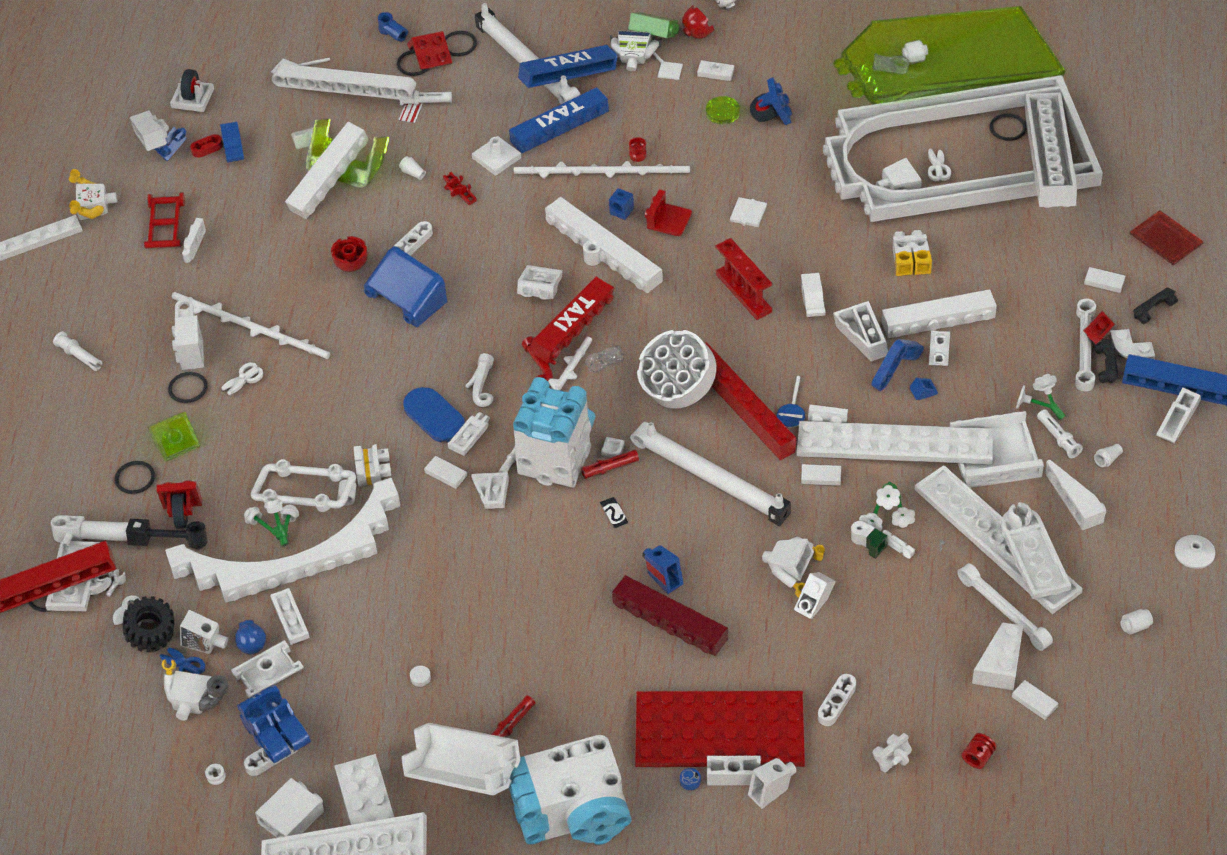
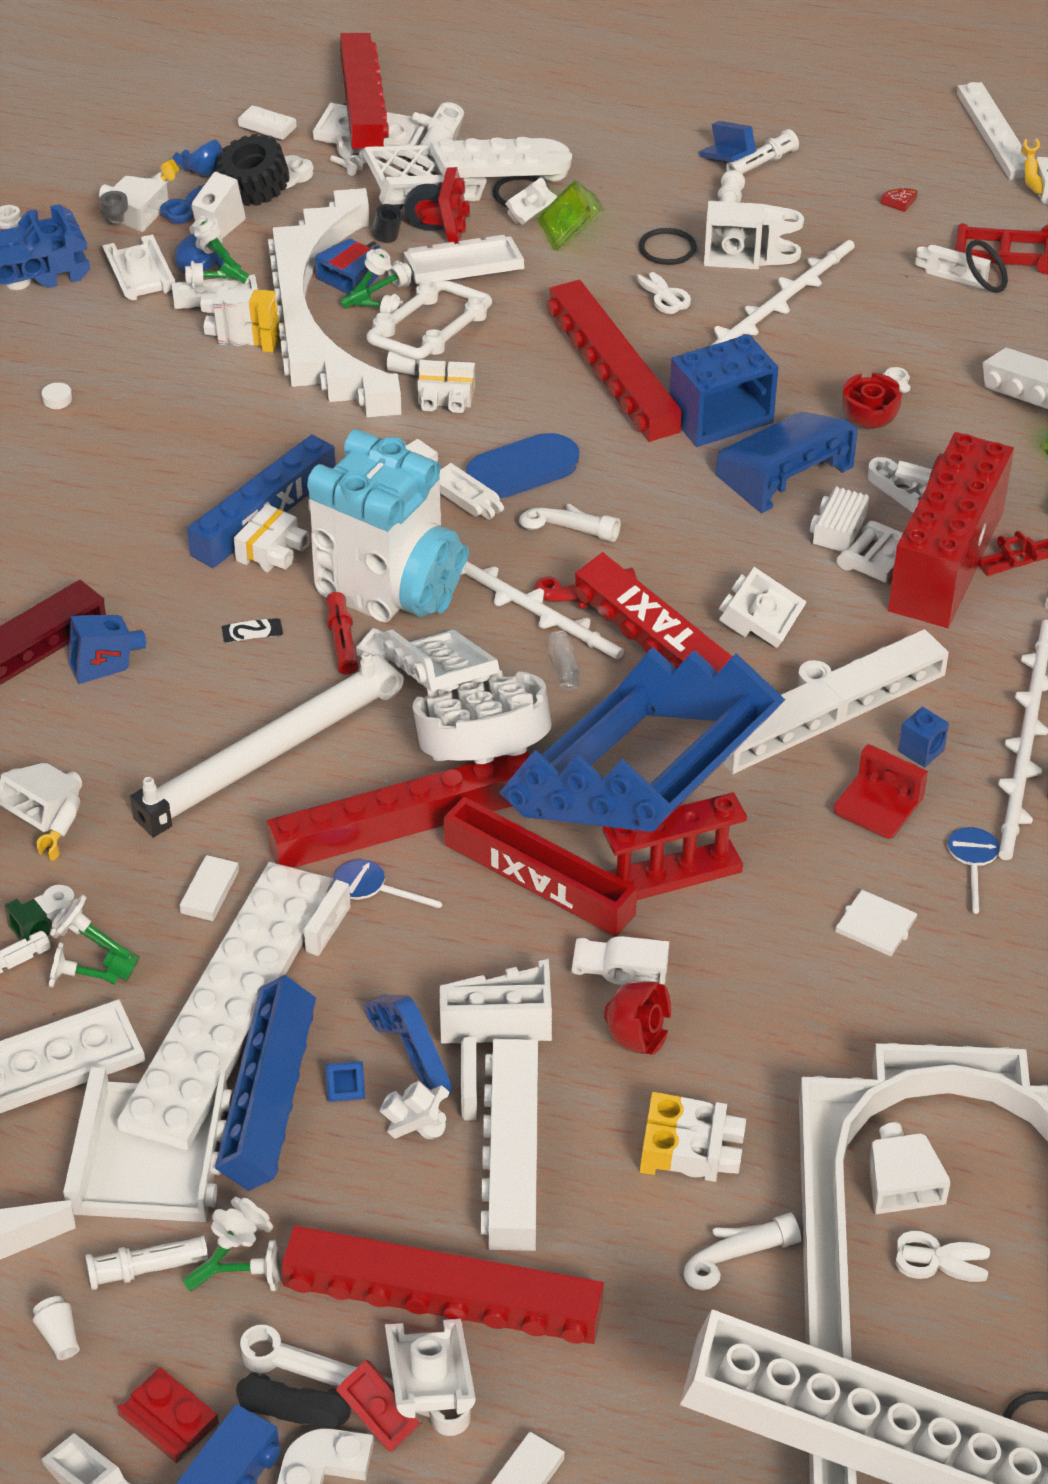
camera: 100 degrees right, 5 degrees down
(71, 642) = (267, 122): none -> white plate
(74, 366) = (731, 142): none -> blue panel
(117, 278) = (899, 198): none -> red tile
(121, 478) = (503, 157): none -> white plate
(129, 665) = (201, 161): none -> blue piece
(130, 360) = (732, 184): none -> white pin
(156, 511) = (396, 188): none -> white fence
(163, 456) = (530, 202): none -> white hips
(191, 222) = (976, 274): none -> black tyre
(225, 487) = (464, 259): none -> white hinge
(248, 543) = (344, 265): none -> blue torso
(276, 594) = (209, 241): none -> plant
(314, 255) = (901, 376): none -> white plate
(323, 387) = (614, 360): none -> red brick
(328, 573) = (242, 317): none -> hips
(359, 319) = (724, 389): none -> blue container
(453, 260) = (839, 519): none -> white brick
(466, 201) = (949, 527): none -> red piece
(475, 238) = (879, 559): none -> white plate
(507, 527) = (278, 485): none -> blue brick
(540, 516) = (270, 539): none -> white hips
(633, 399) = (440, 659): none -> white bracket
(687, 182) = (974, 848): none -> blue piece
(688, 251) = (572, 791): none -> blue door
(766, 334) = (540, 866): none -> red brick
(852, 277) = (637, 1016): none -> red cylinder
(916, 334) = (468, 1078): none -> white tile
(944, 408) = (266, 1084): none -> blue brick
(956, 228) = (739, 1242): none -> white plant
(1027, 321) = (443, 1284): none -> red brick
(1072, 312) = (430, 1369): none -> white piece
(1130, 405) = (168, 1414): none -> red plate

